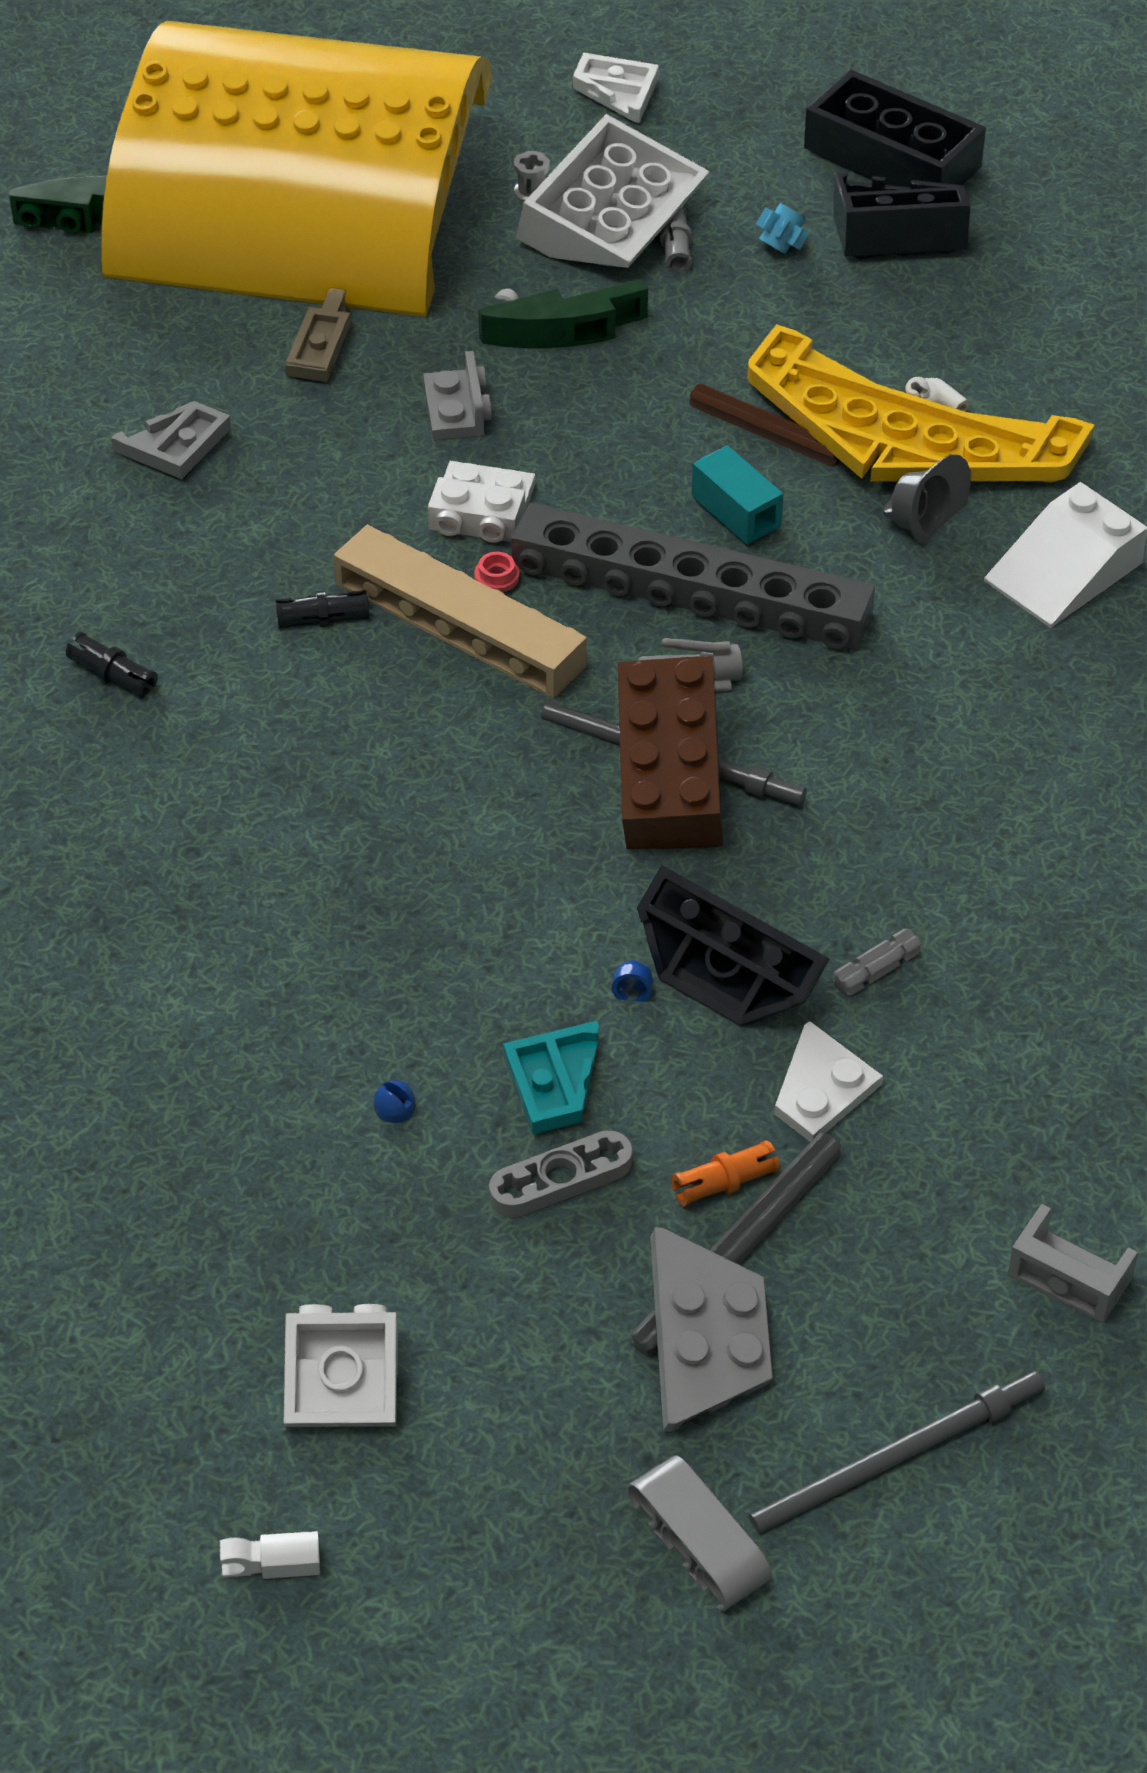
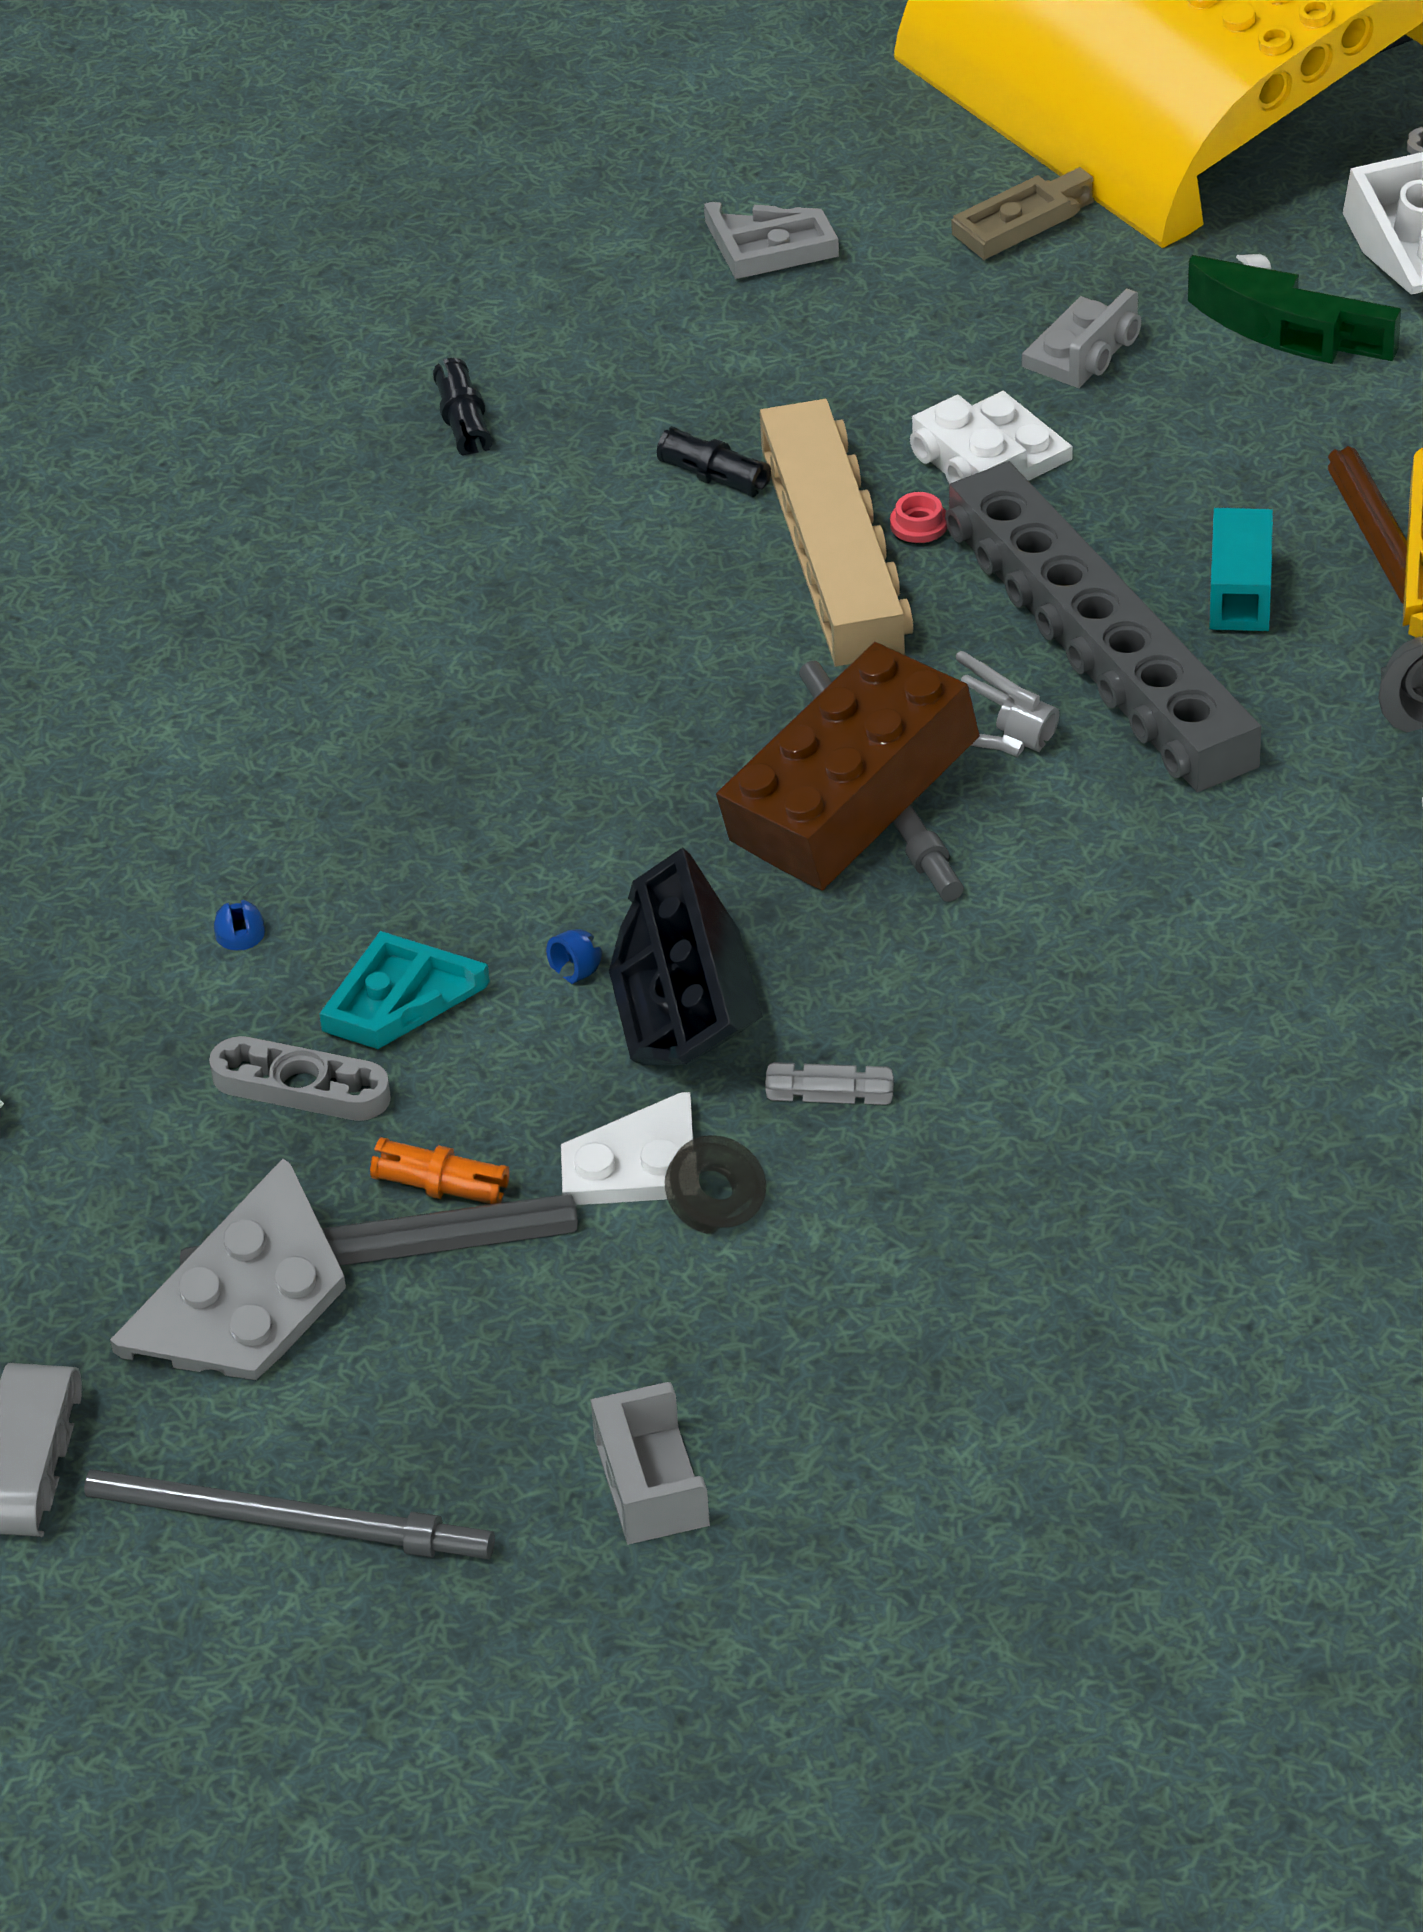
camera: 45 degrees right, 5 degrees down
(887, 1083) = (730, 1160): none -> clear smoke piece

